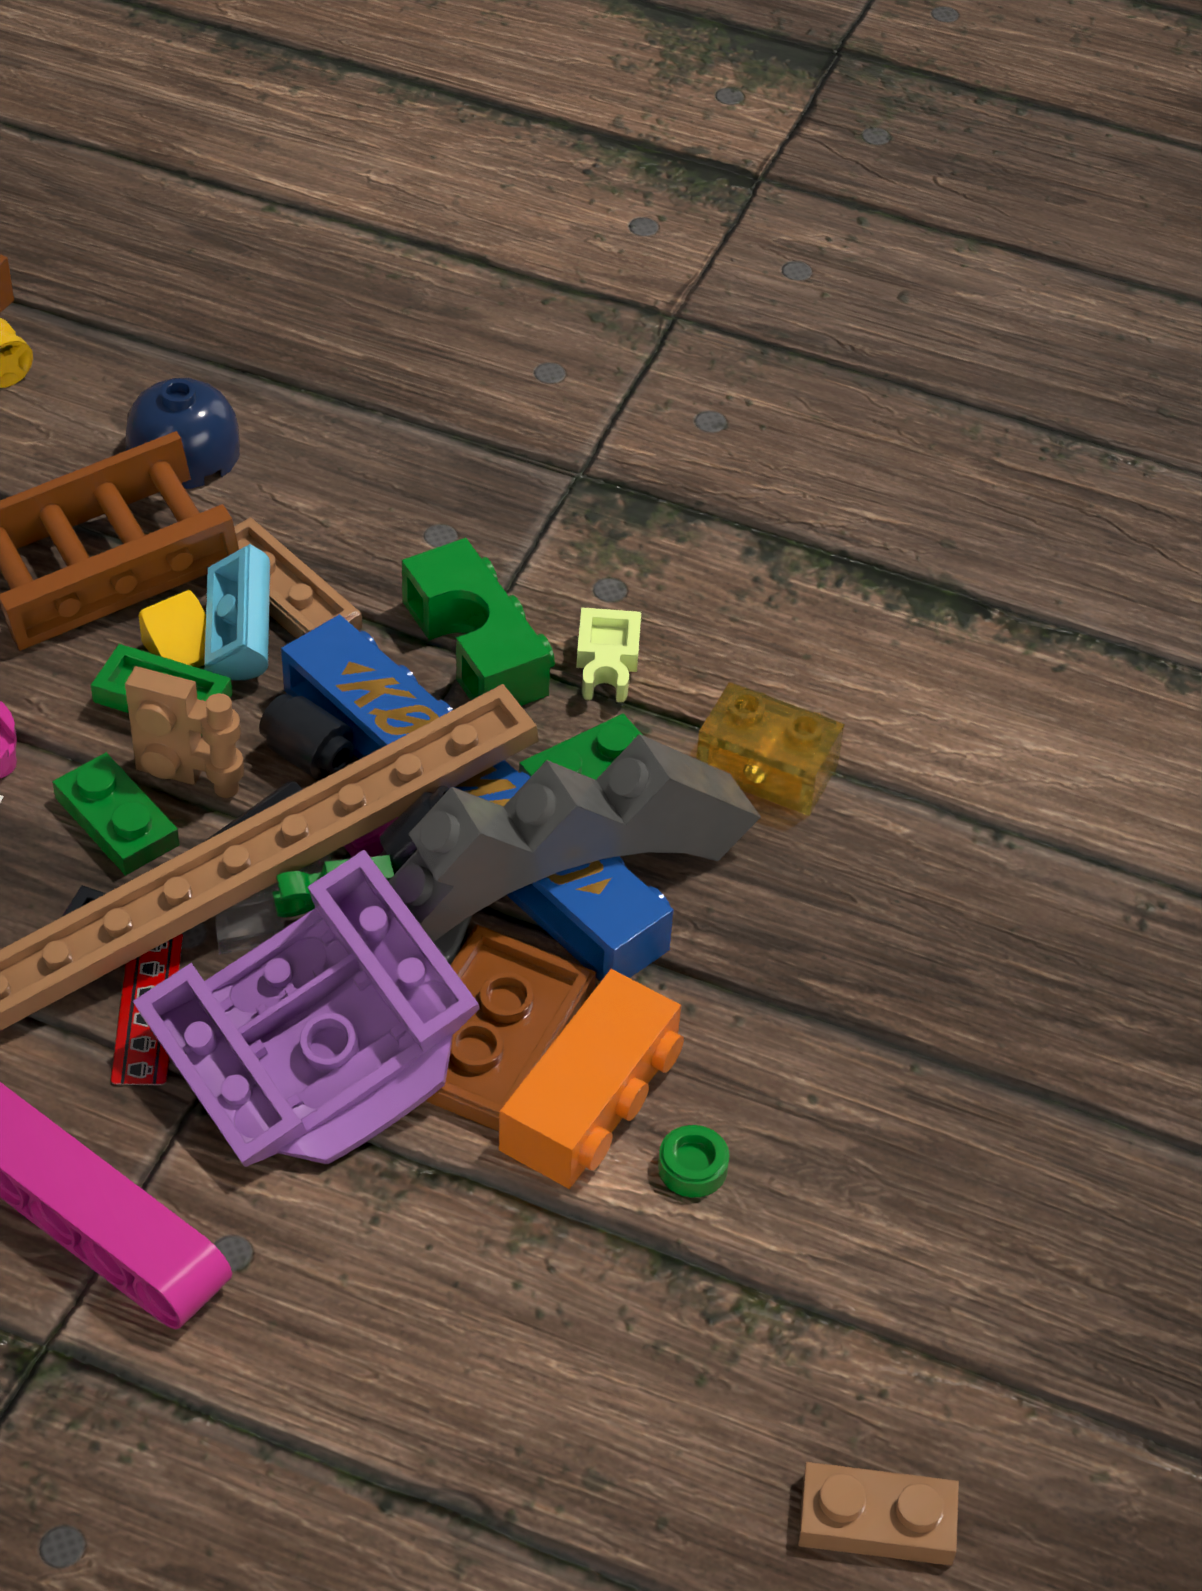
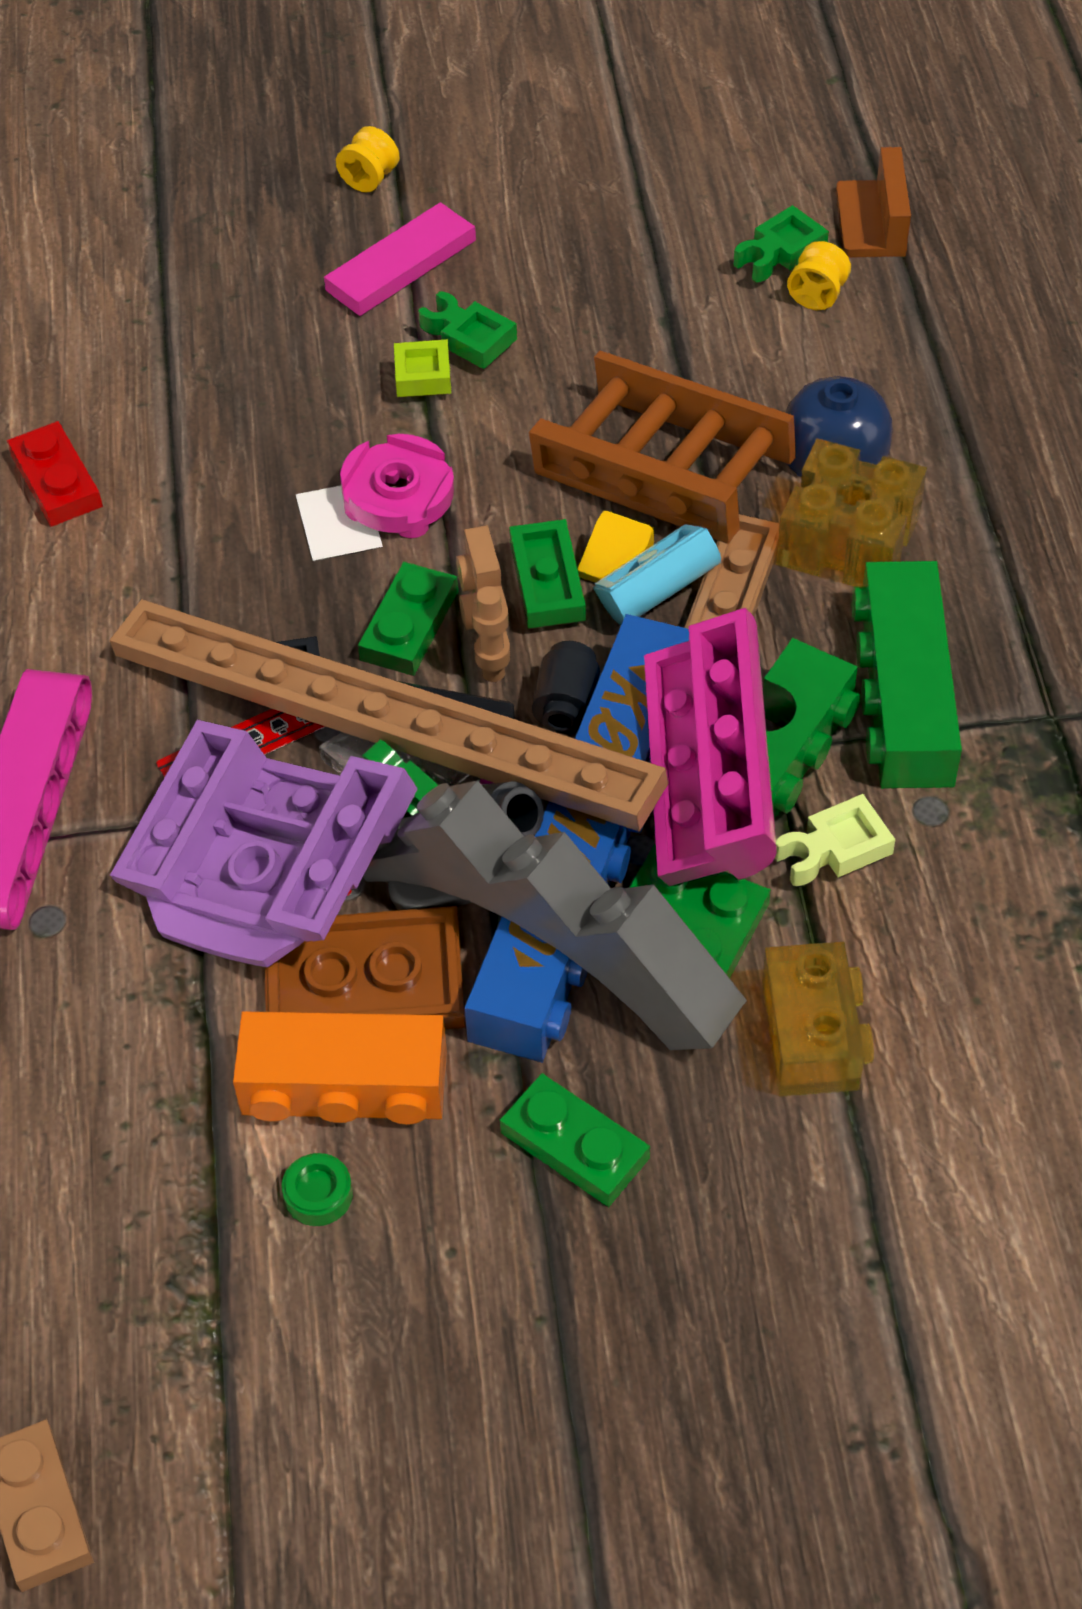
camera: 65 degrees right, 5 degrees up
(291, 467) = (849, 512): none -> clear yellow brick
(474, 630) = (714, 747): none -> dark pink brick
(522, 534) = (909, 675): none -> green brick
(766, 959) = (575, 1139): none -> green plate

